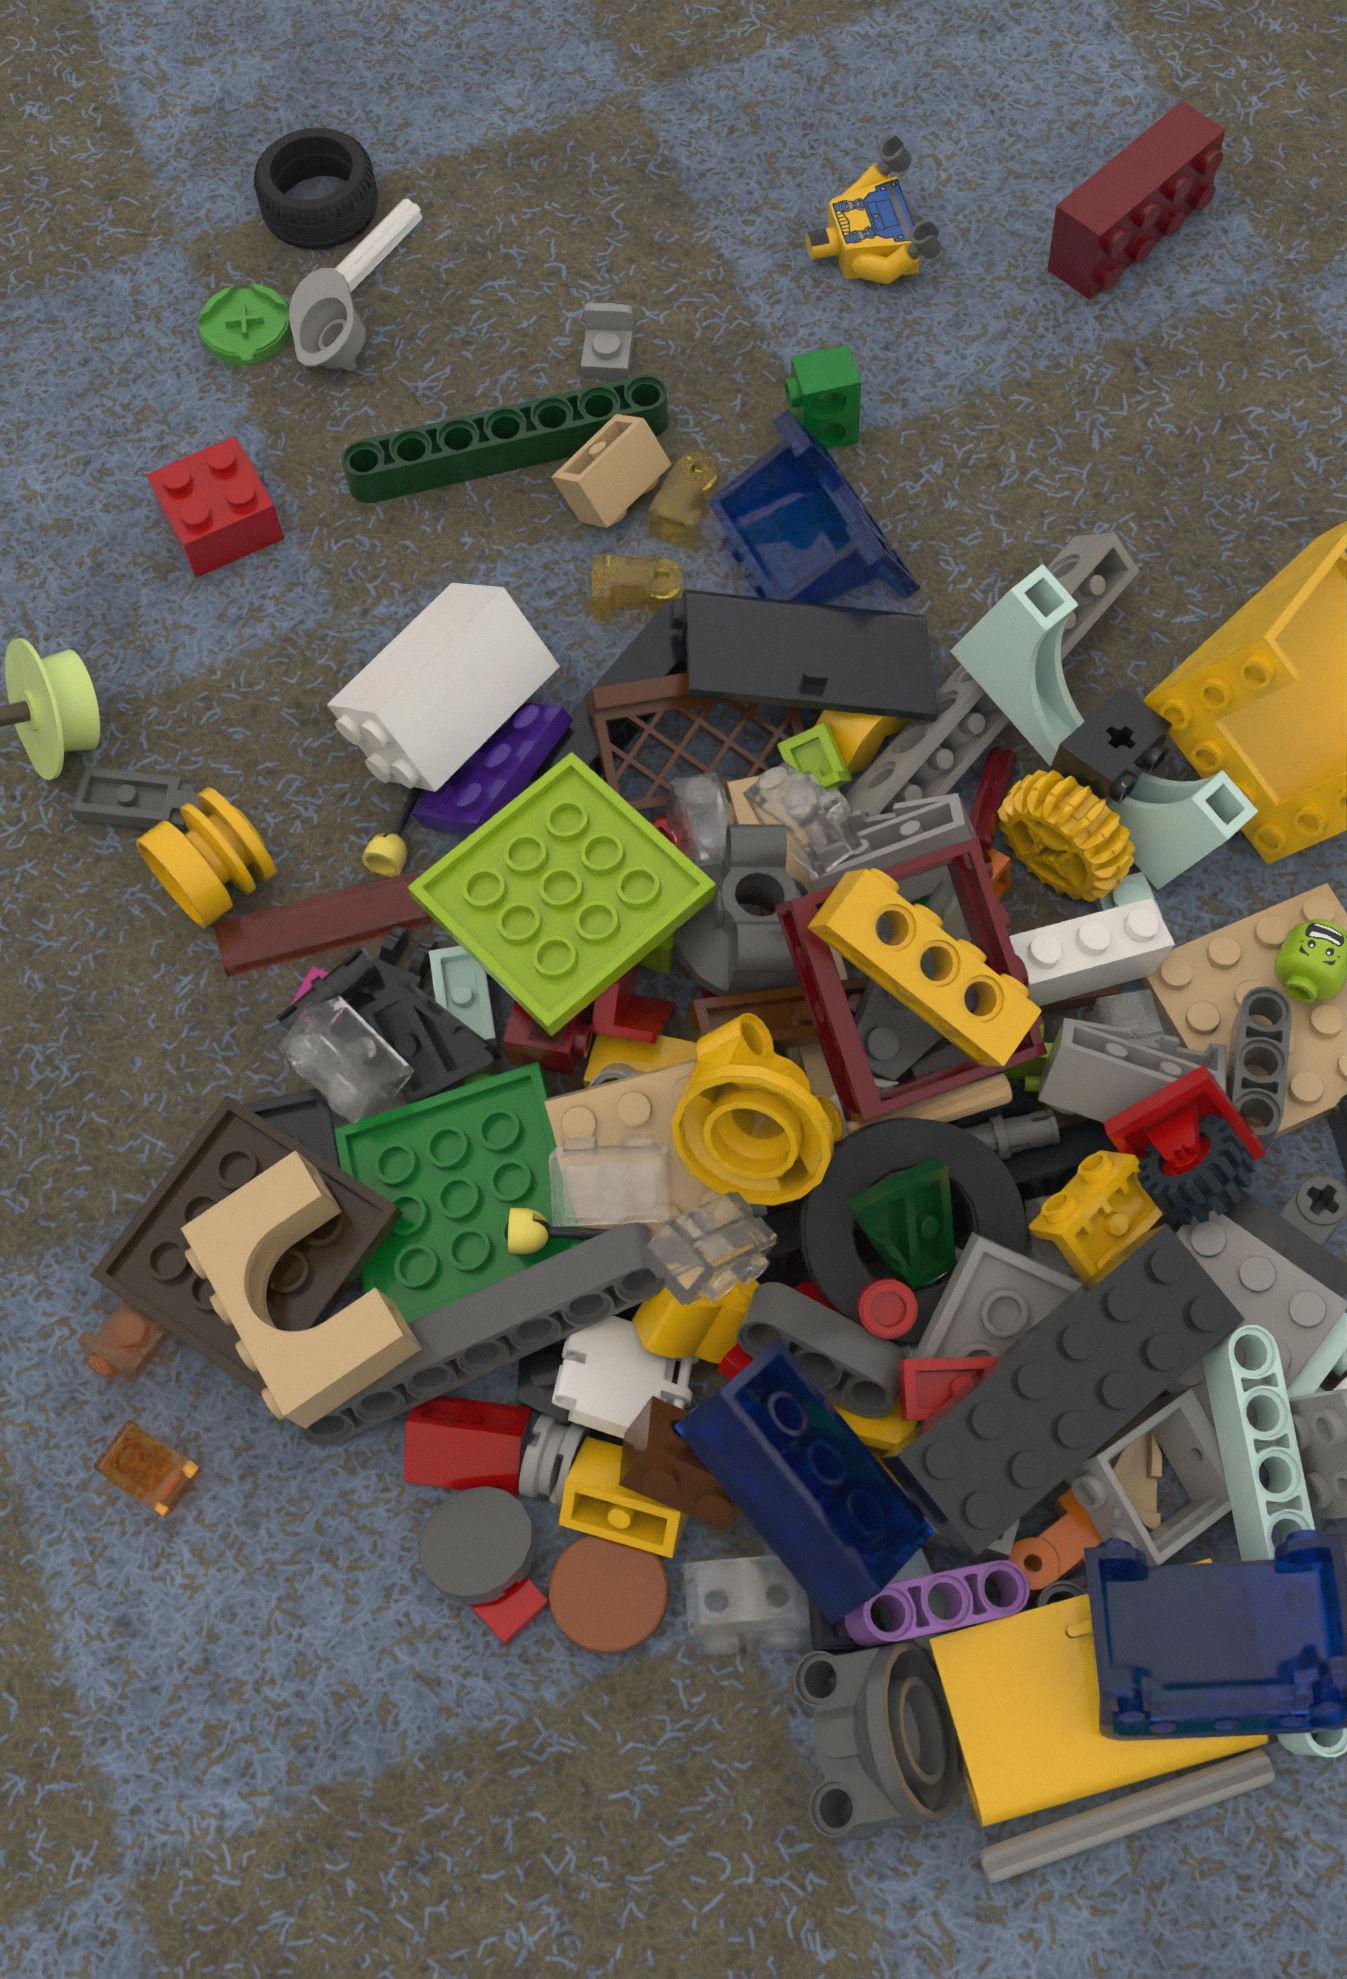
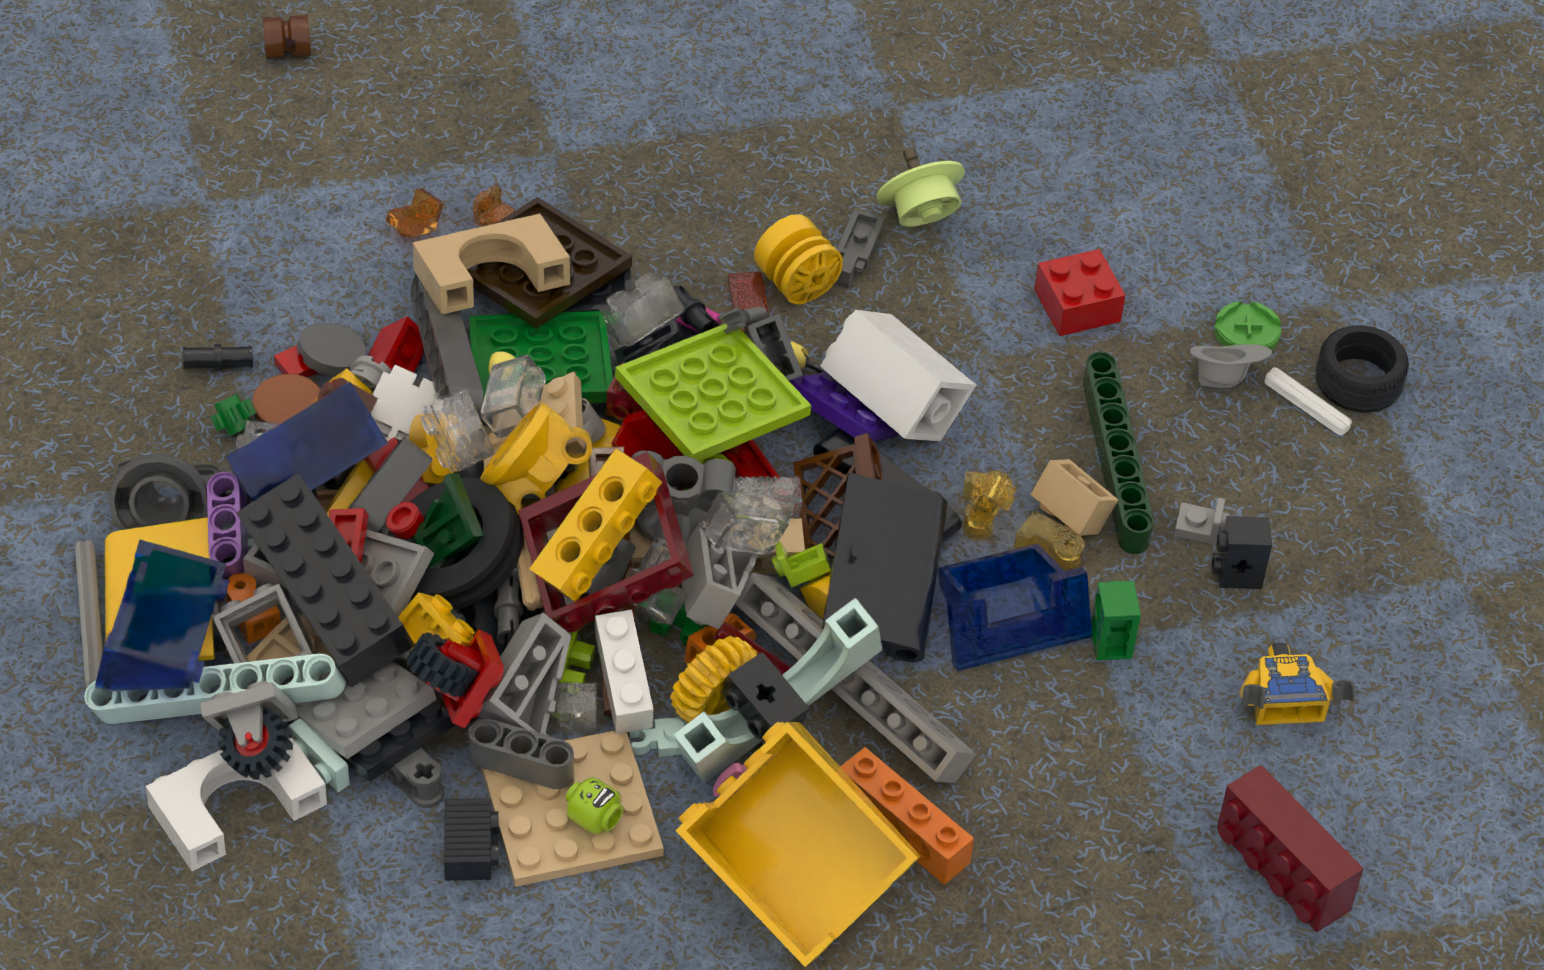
camera: 90 degrees right, 15 degrees down
(418, 844) = (768, 335): none -> dark grey torso
(522, 1741) = (217, 357): none -> black pin
(646, 543) = (993, 492): none -> clear yellow gear
(659, 1674) = (232, 414): none -> green gear
(677, 275) = (1242, 552): none -> black brick
(1195, 602) = (935, 837): none -> orange brick

